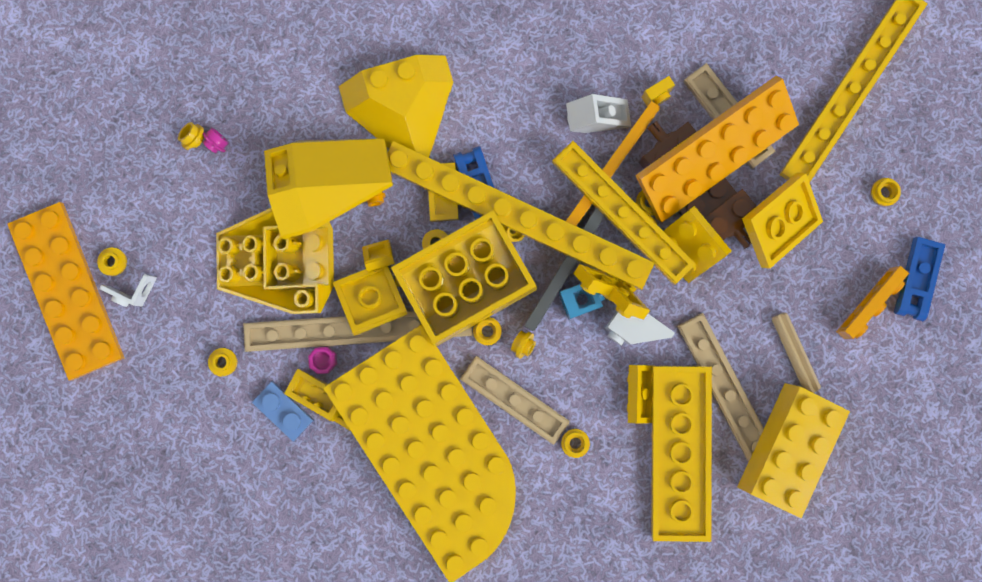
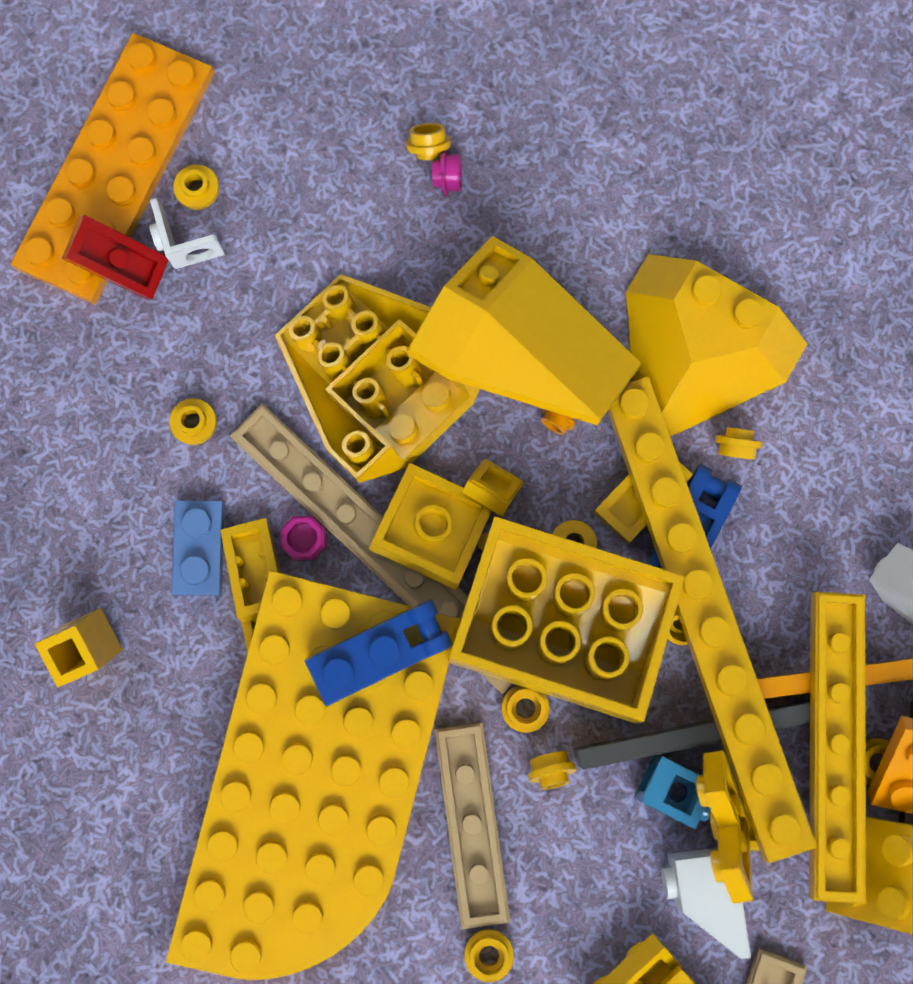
camera: 45 degrees right, 5 degrees down
(112, 329) = (115, 257): none -> red plate
(278, 502) = (78, 647): none -> yellow brick
(402, 373) = (376, 653): none -> blue plate
(460, 129) = (738, 443): none -> yellow plate

